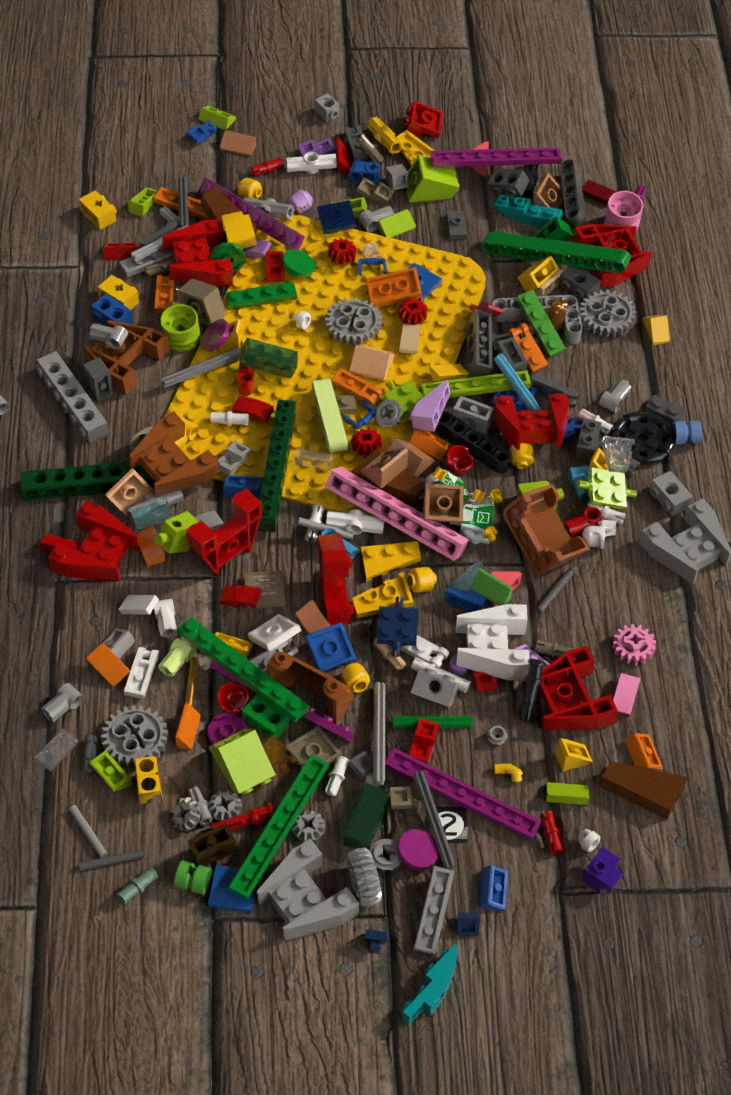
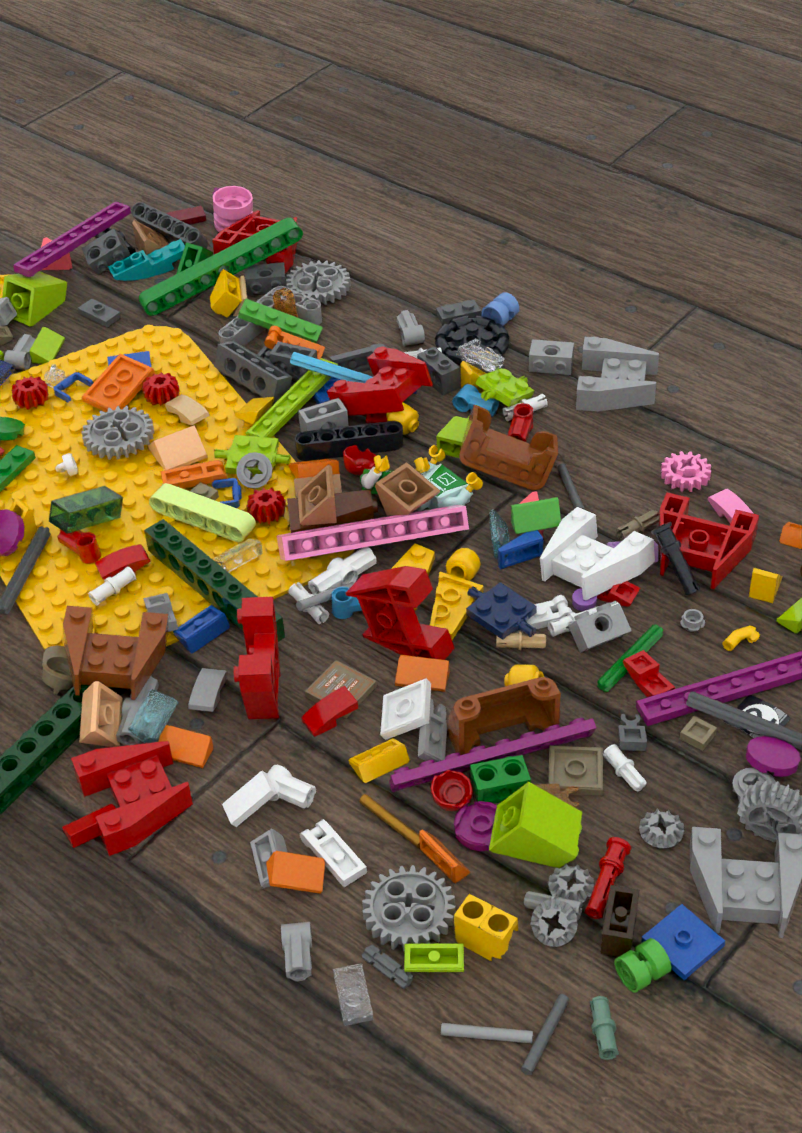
camera: 45 degrees left, 10 degrees down
(173, 533) = (205, 709): lime torso -> none
(180, 652) = (344, 799): yellowish green piece -> none
(243, 669) = (429, 755): green plate -> none
(278, 827) = (652, 851): green plate -> none
(330, 647) = (467, 675): blue plate -> none
(365, 817) = (699, 773): clear green brick -> none
(379, 734) = (610, 702): light grey axle -> none
(430, 408) = (290, 439): lavender slope -> none
(487, 307) = (225, 336): red slope -> none
(595, 535) = (545, 420): white piece -> none
(657, 329) = (369, 266): yellow slope -> none

